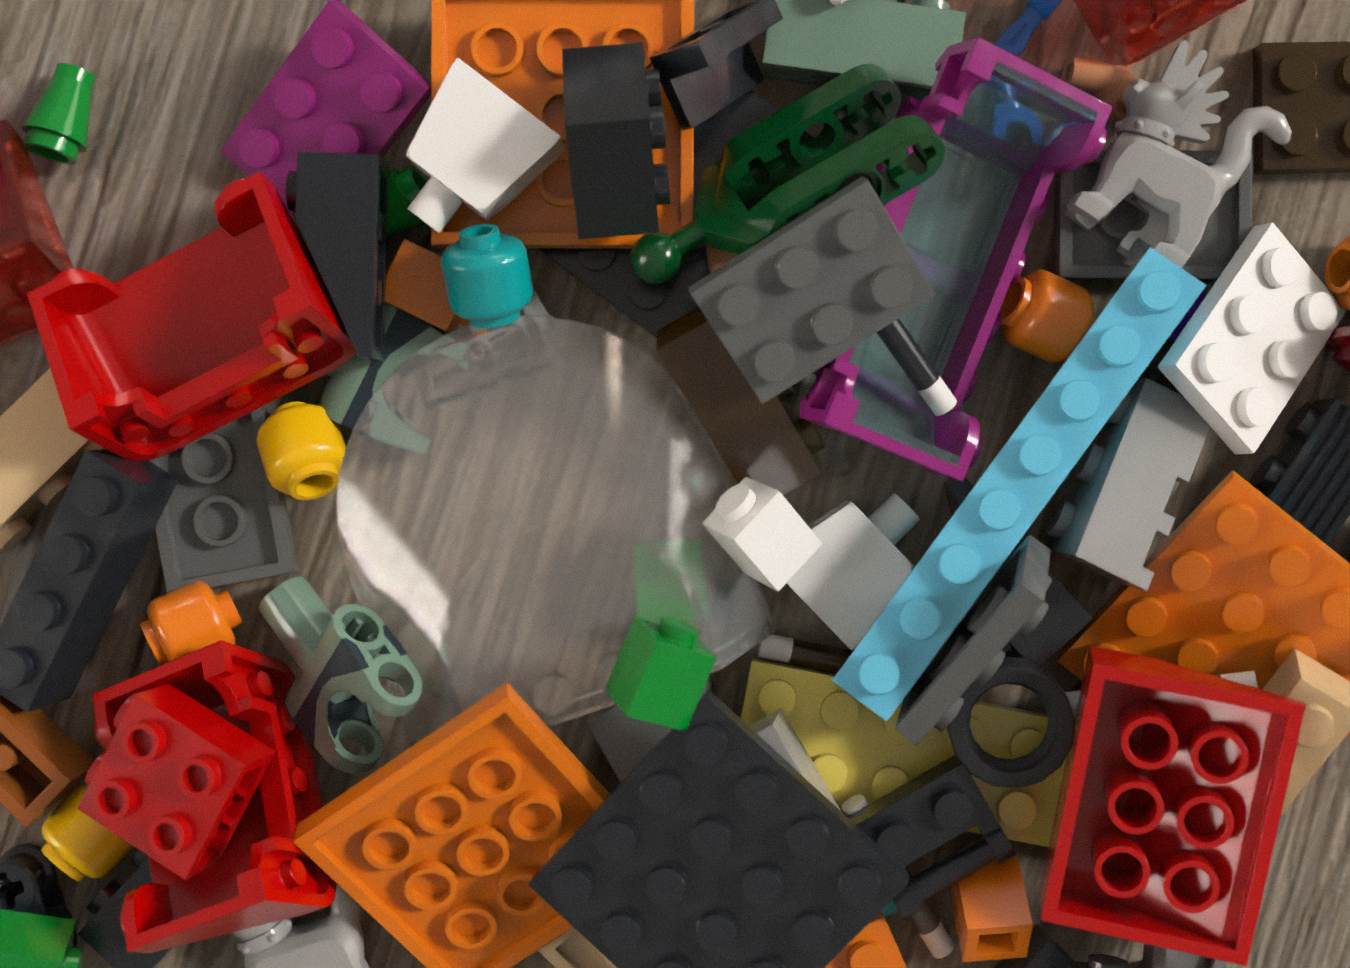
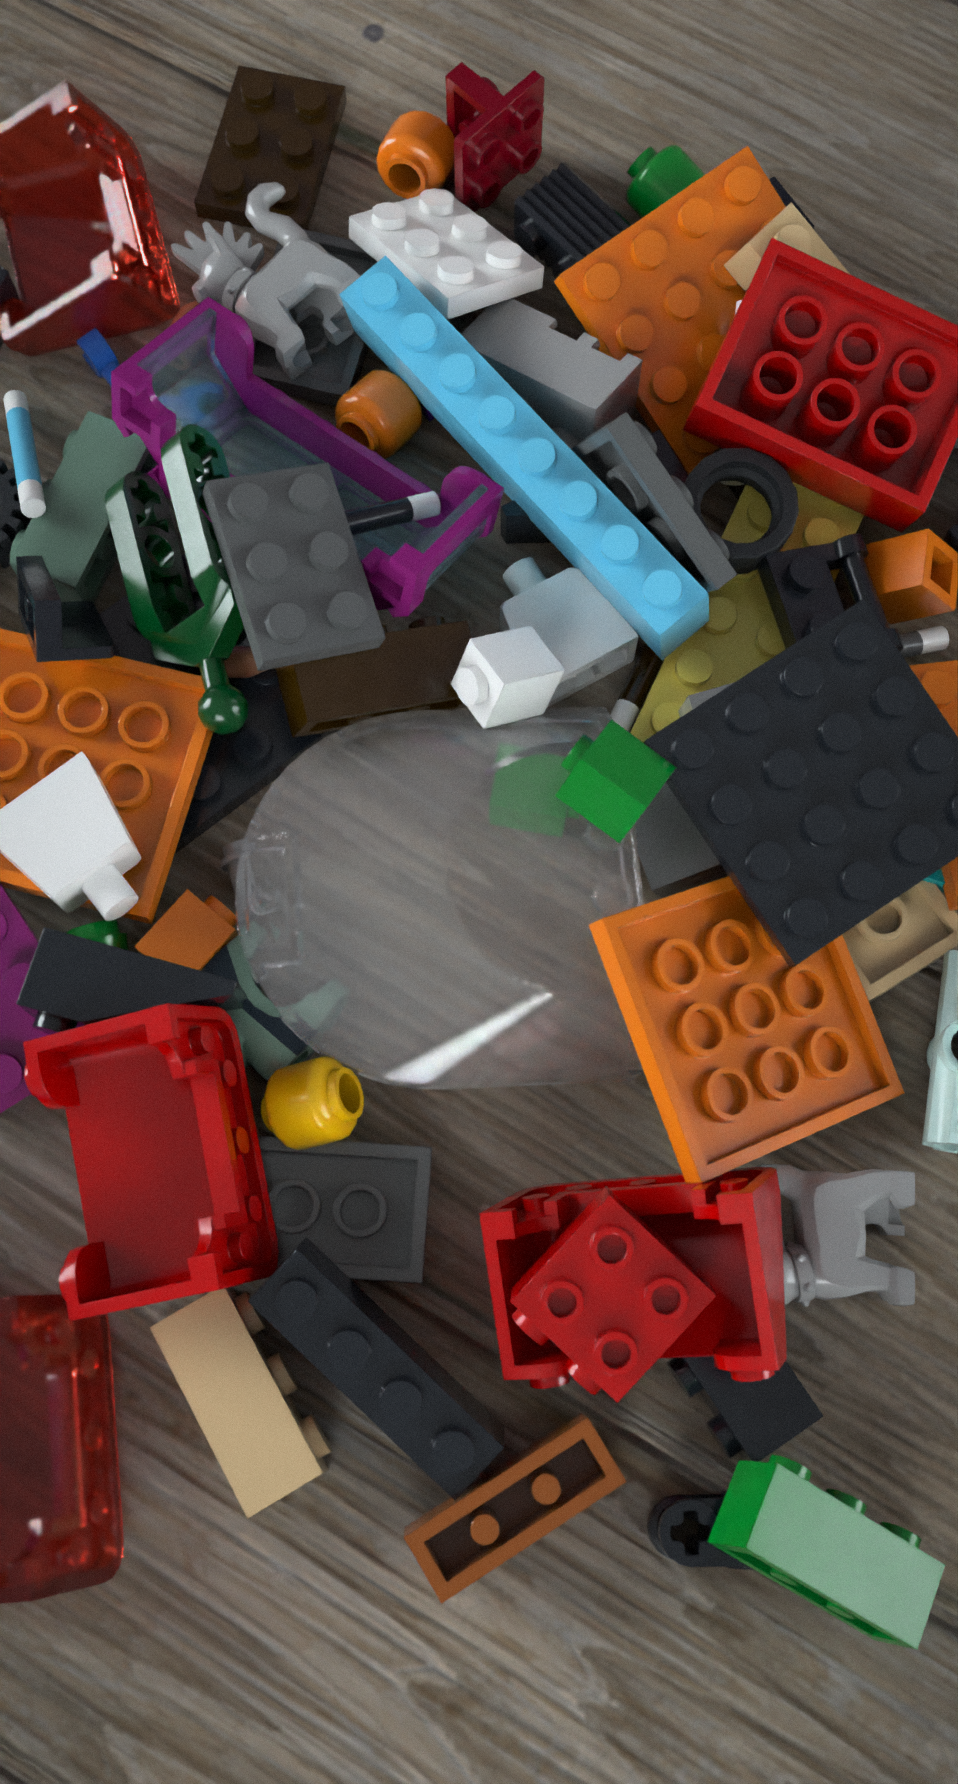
camera: 75 degrees left, 15 degrees down
(80, 843) = (651, 1433): yellow head -> none
(189, 621) = (454, 1269): orange head -> none
(339, 672) = (539, 1120): sand green connector -> none
(487, 276) = (193, 863): teal head -> none
(610, 134) = (102, 704): black brick -> none

